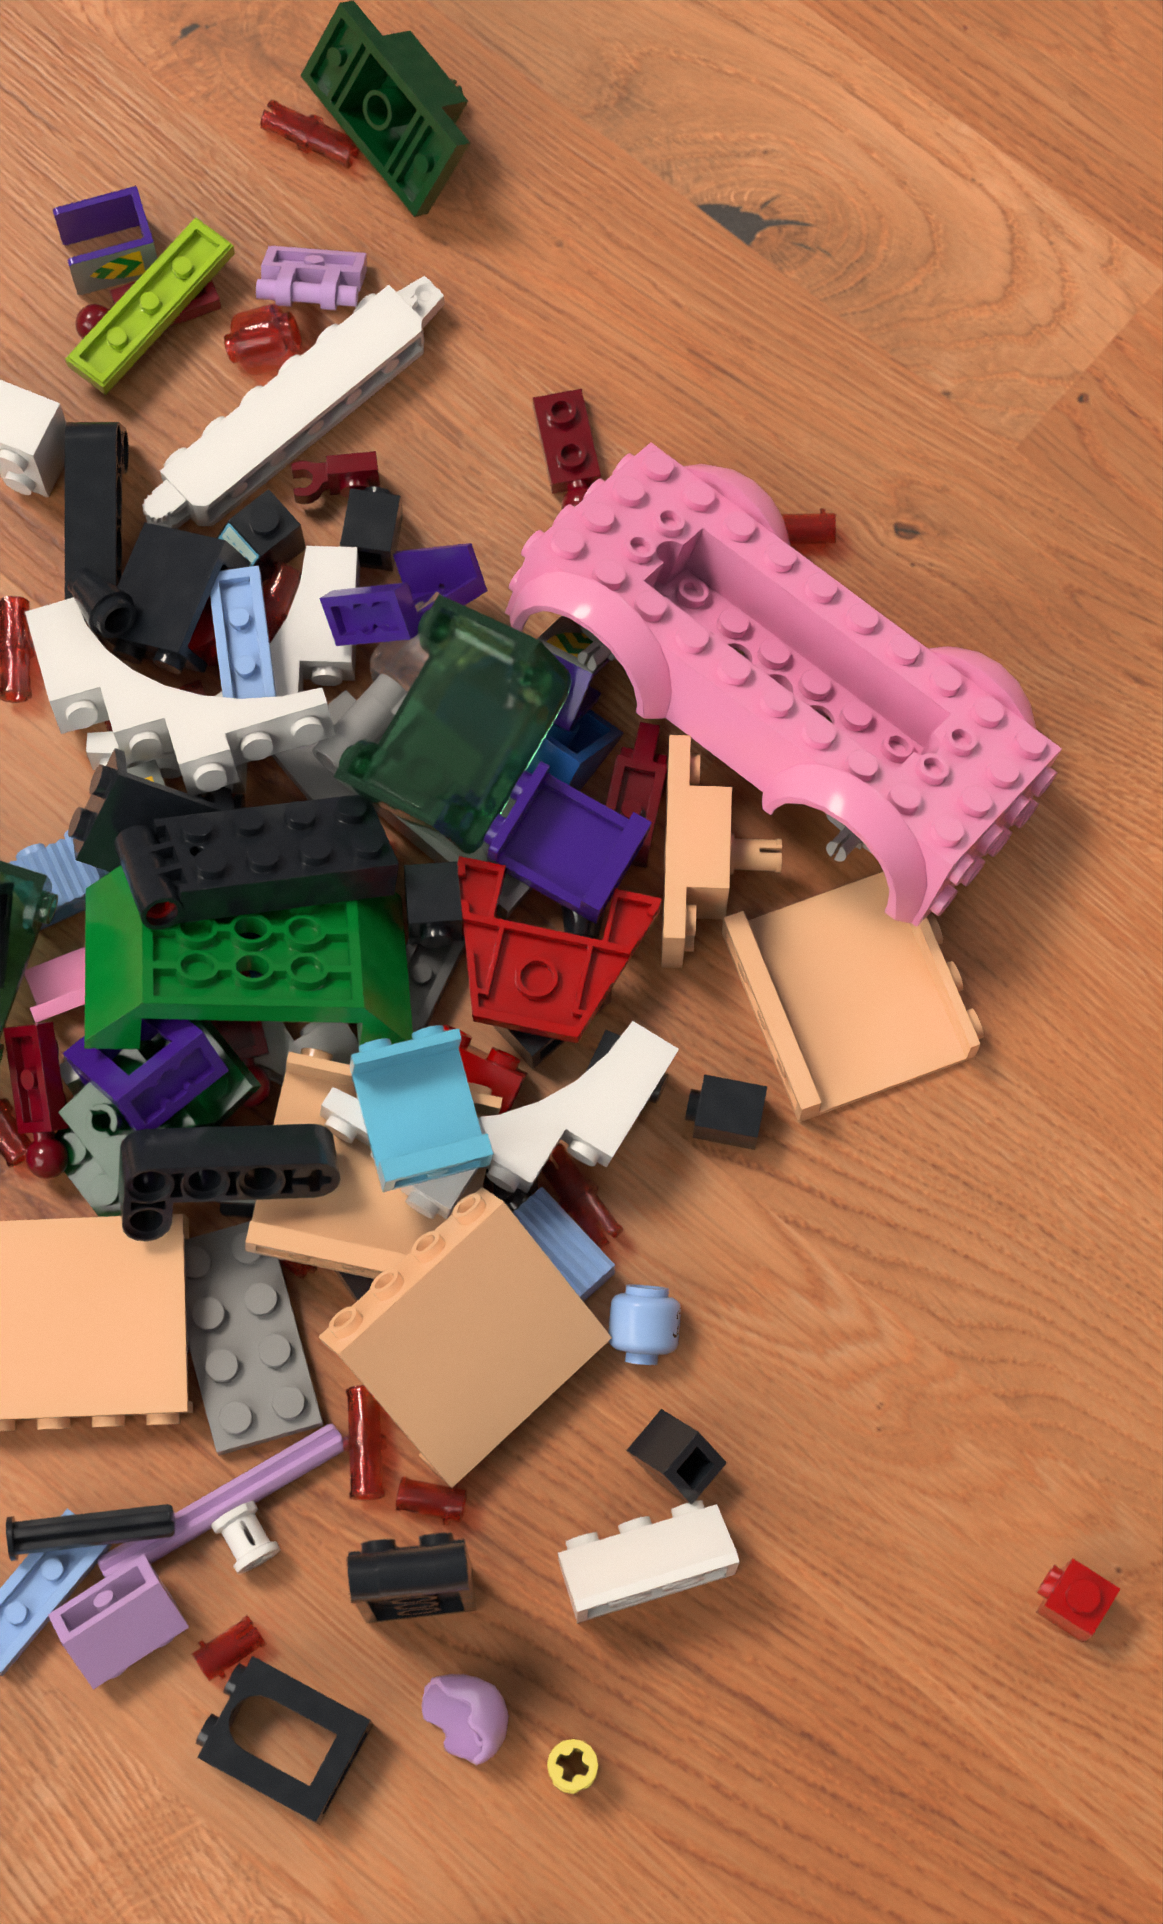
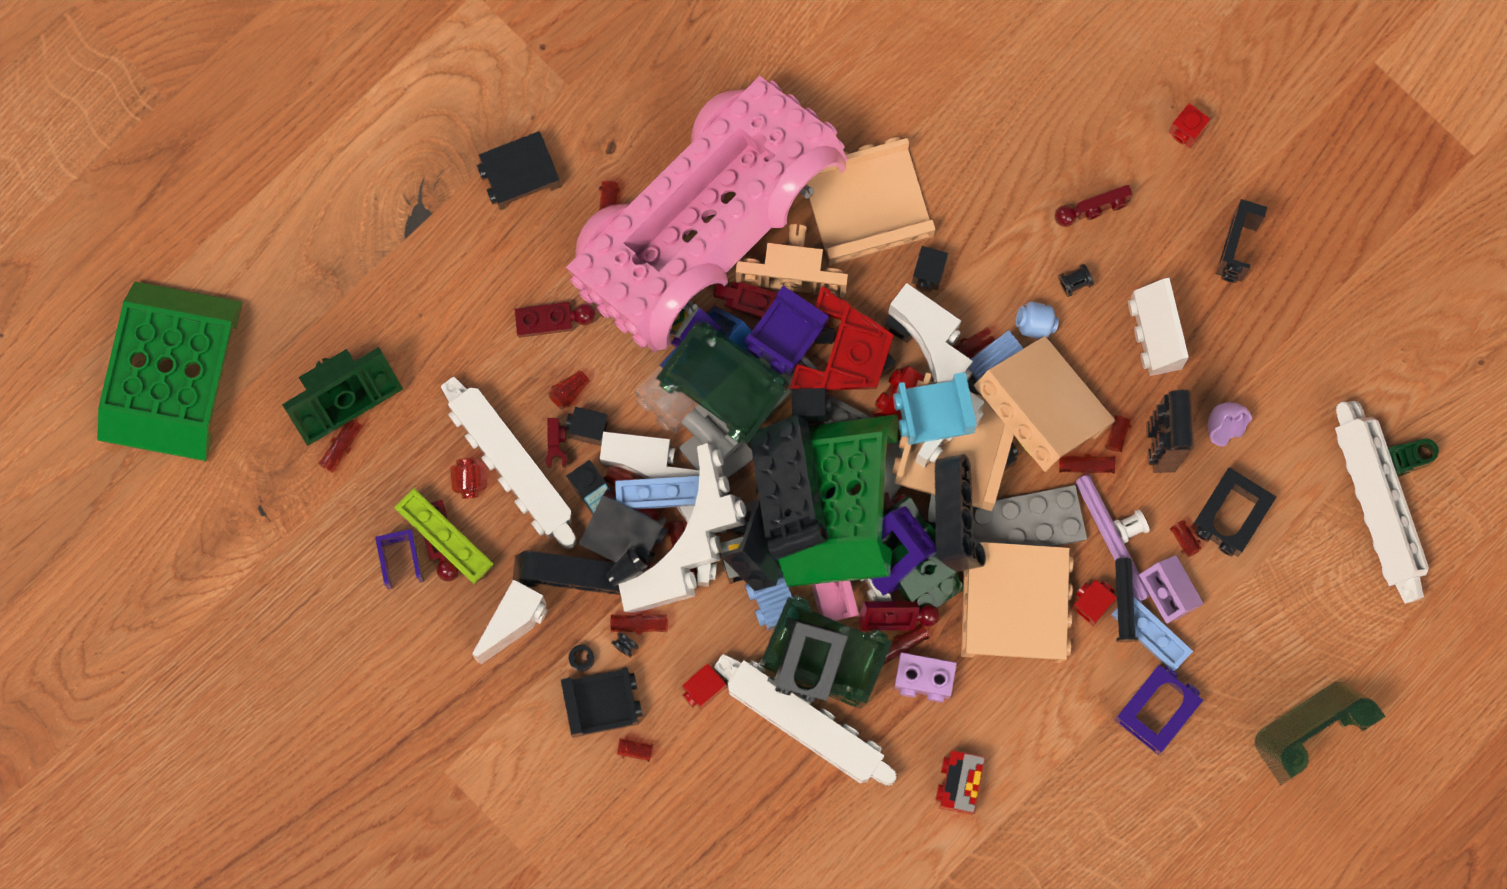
camera: 85 degrees left, 5 degrees up
(91, 1472) = (1094, 601): none -> red brick
(311, 276) = (428, 444): lavender plate -> none
(389, 610) = (657, 409): dark purple panel -> none
(437, 491) = (567, 390): none -> clear red cone
(565, 1750) = (1262, 374): light yellow bush -> none
(676, 1456) = (1106, 309): black brick -> none
(734, 1395) = (1075, 280): none -> black bush
(840, 370) = (518, 169): none -> black panel
(894, 1710) = (1248, 216): none -> black panel
(907, 1464) = (1093, 207): none -> dark red plate

